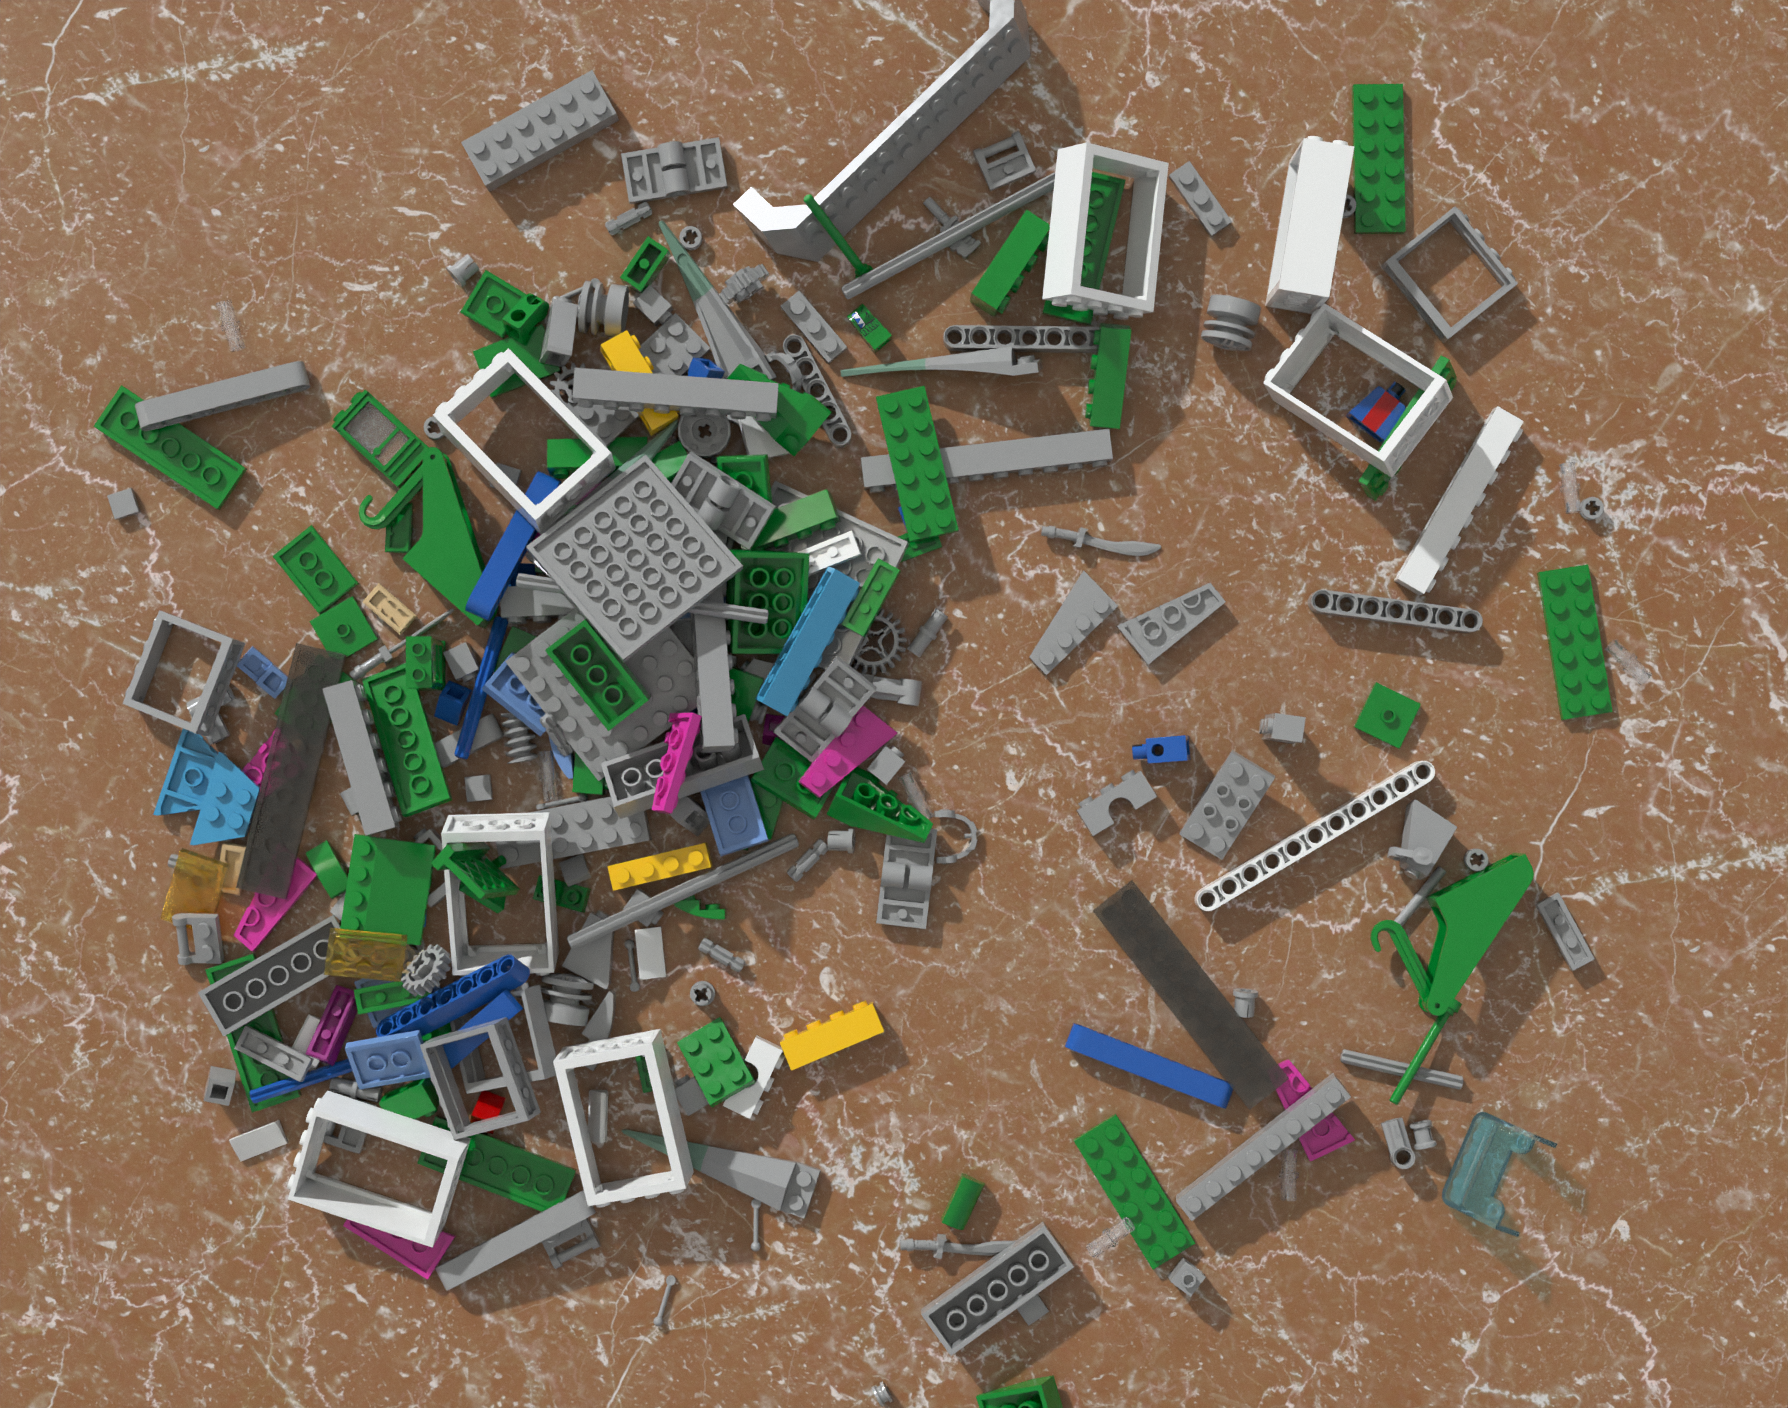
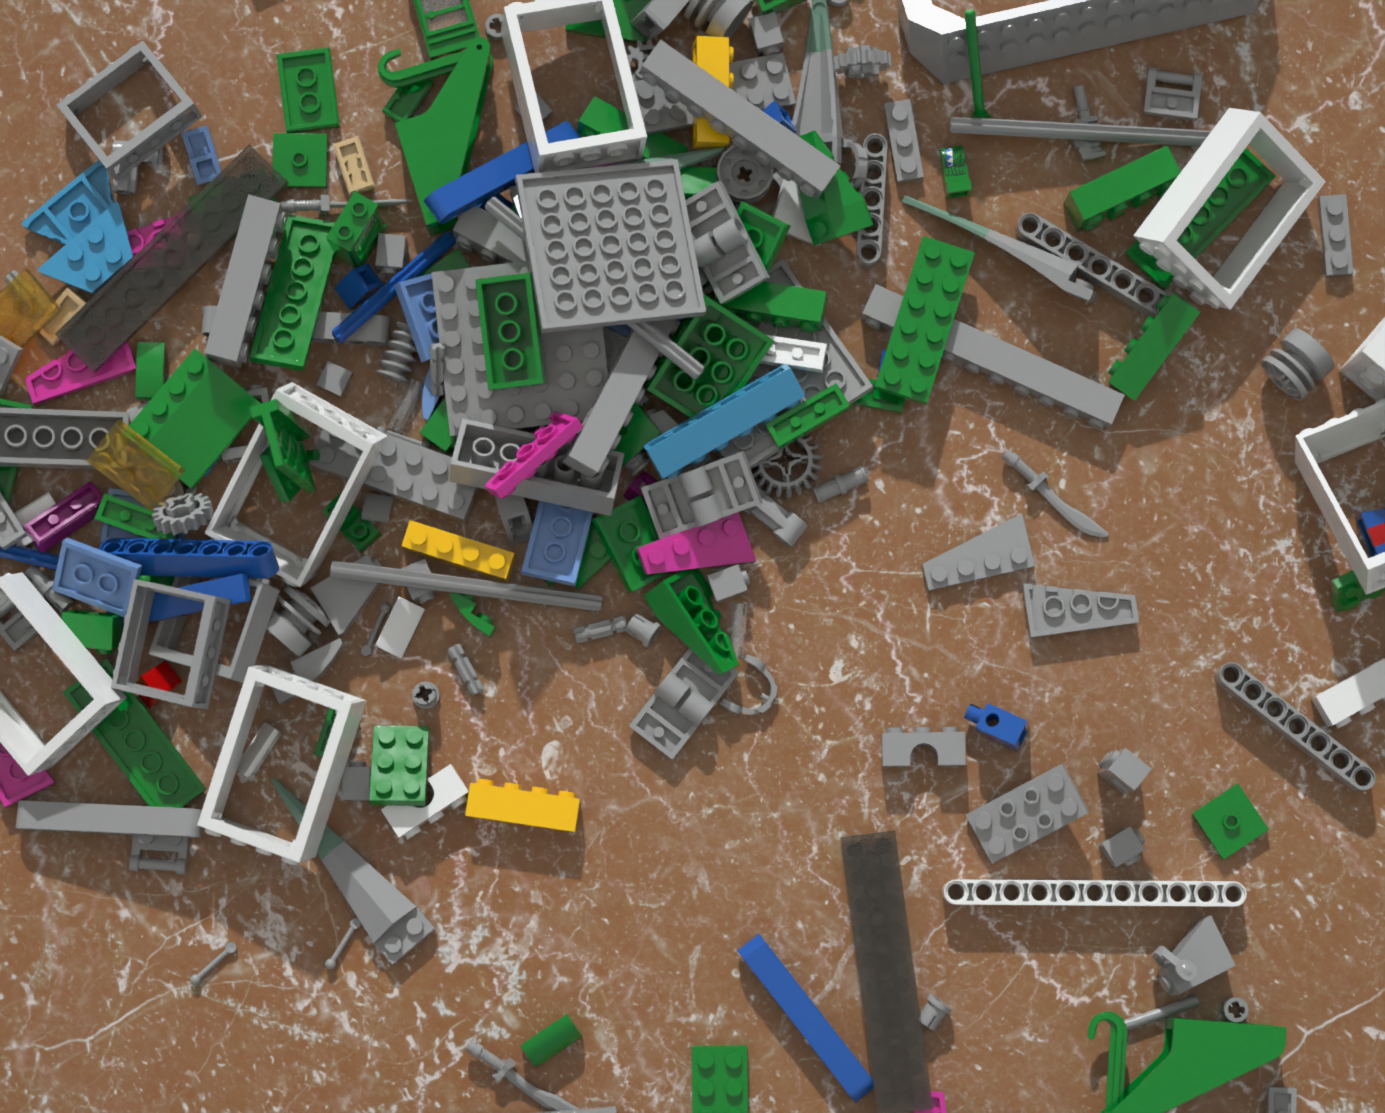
camera: 30 degrees right, 5 degrees down
(1316, 786) = (1123, 847): none -> light grey brick

